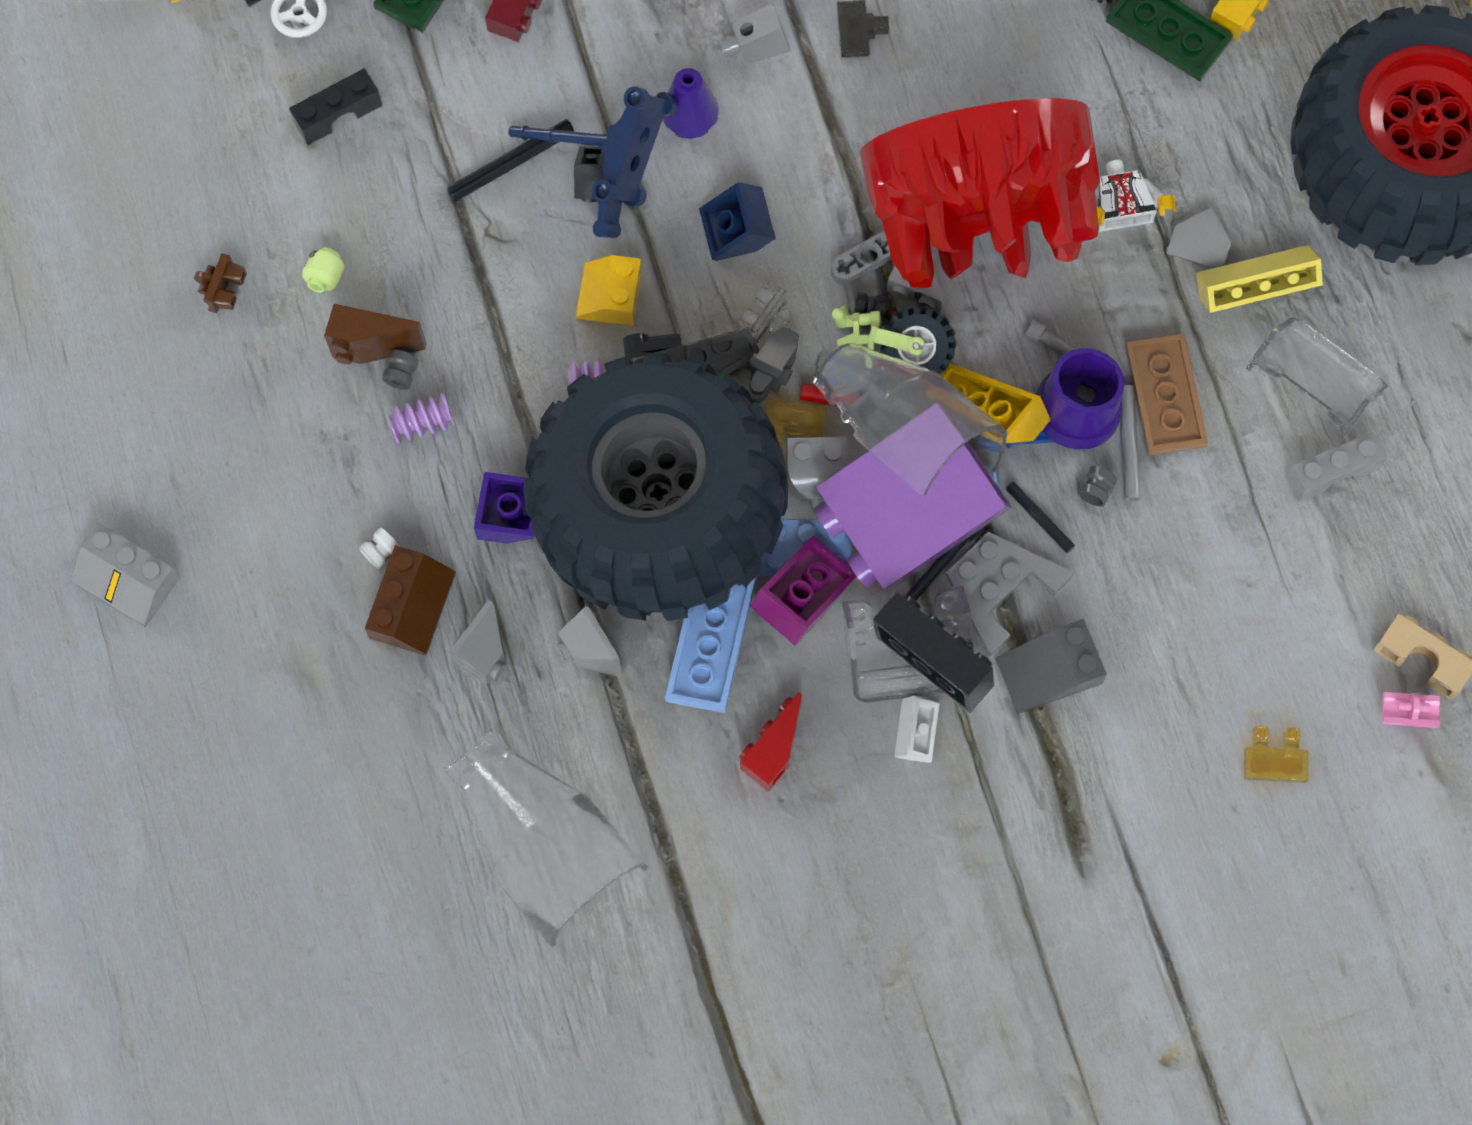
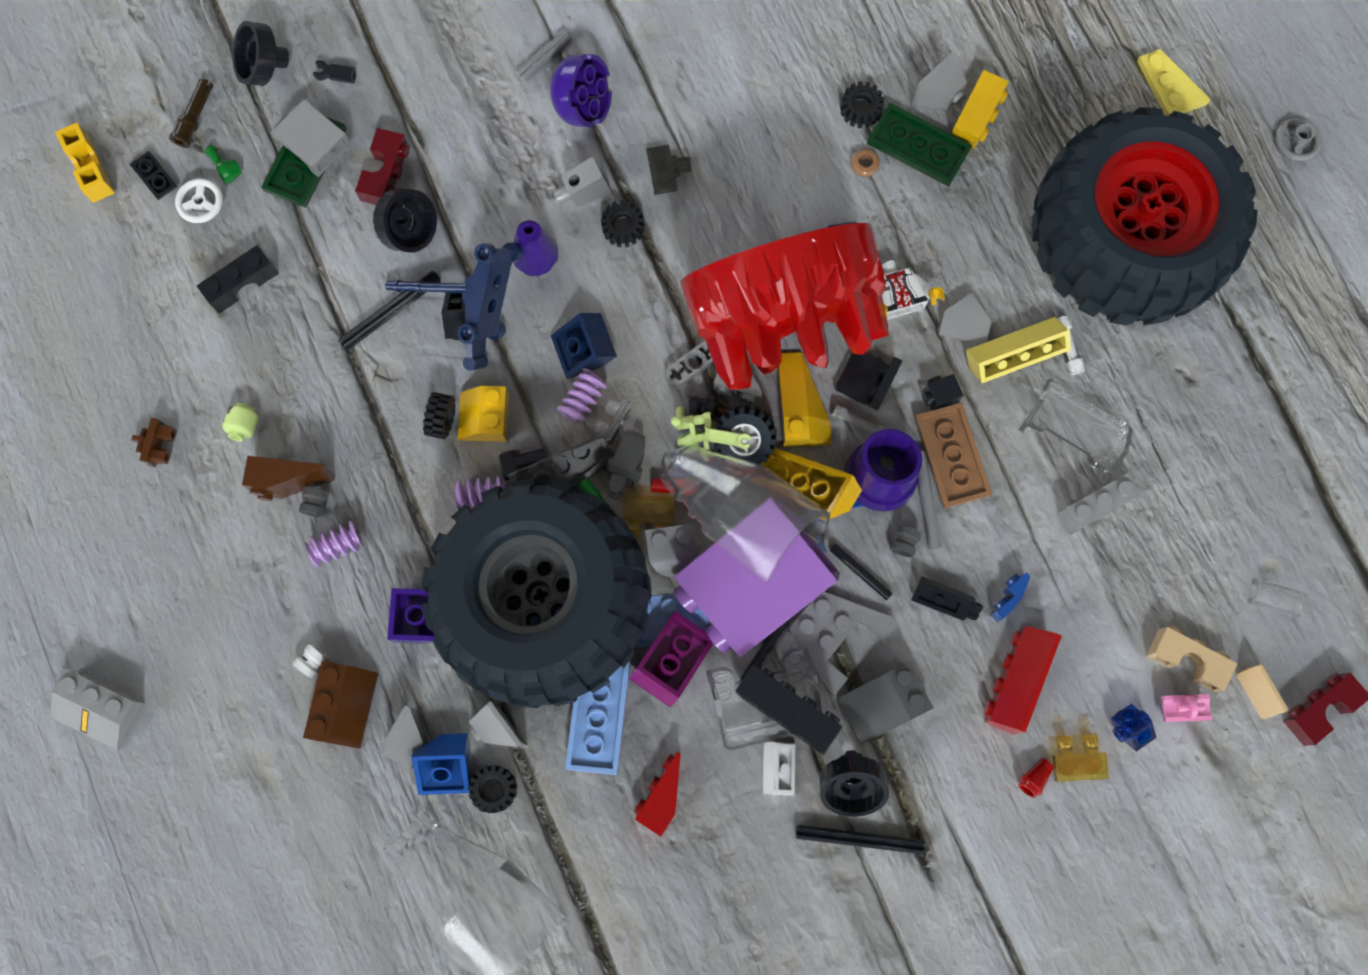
camera: 10 degrees left, 5 degrees up
(522, 681) = (443, 765): none -> blue slope
(528, 56) = (393, 221): none -> black piece
(558, 285) = (439, 415): none -> black tyre
(571, 697) = (477, 784): none -> black tyre
(728, 280) = (581, 396): none -> lavender piece
(803, 72) = (622, 210): none -> black tyre
(991, 325) = (802, 411): none -> yellow wedge
(1003, 736) = (853, 773): none -> black piece
(1003, 819) = (860, 839): none -> black axle
(1074, 295) = (867, 379): none -> black bracket
(1096, 53) = (865, 171): none -> medium nougat piece
(1138, 558) = (946, 600): none -> black hinge
(1161, 318) = (942, 392): none -> black brick
(1215, 656) = (1022, 679): none -> red slope
(1219, 557) = (1014, 592): none -> blue slope
(1220, 773) = (1035, 779): none -> red cone
(1328, 303) = (1075, 364): none -> white bar
(1344, 724) = (1133, 727): none -> clear blue brick

